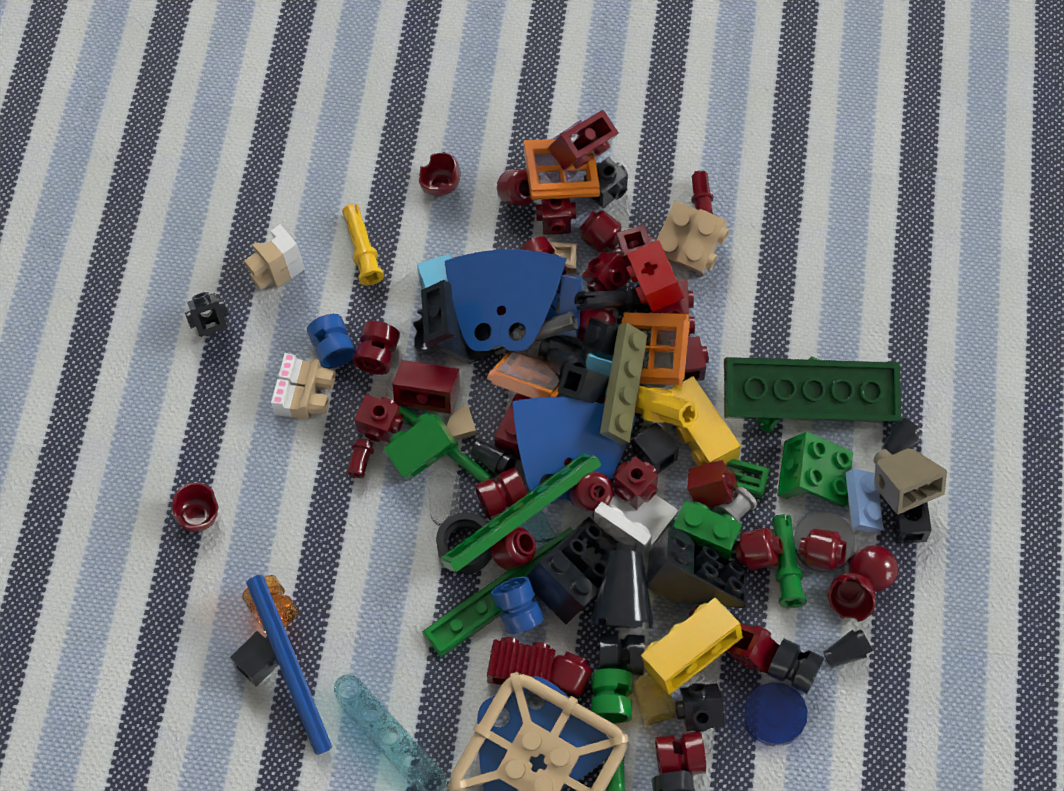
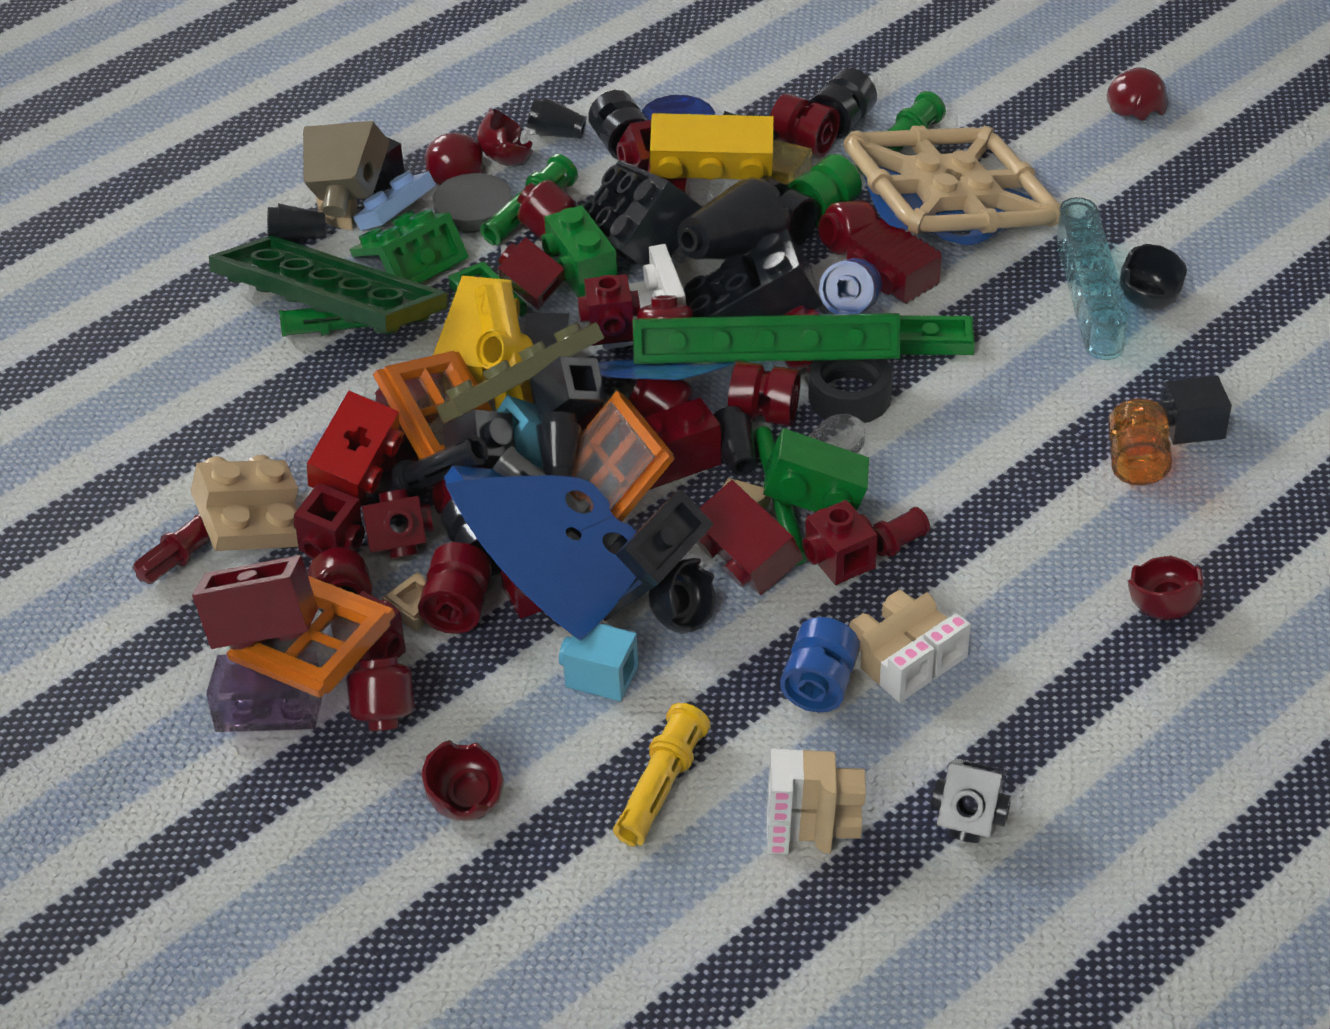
camera: 140 degrees left, 20 degrees down
(289, 664) = (1162, 364): blue axle -> none
(349, 758) = (1152, 276): none -> black hair
(376, 347) = (767, 621): dark red wheel -> none
(823, 549) = (487, 170): dark red head -> none

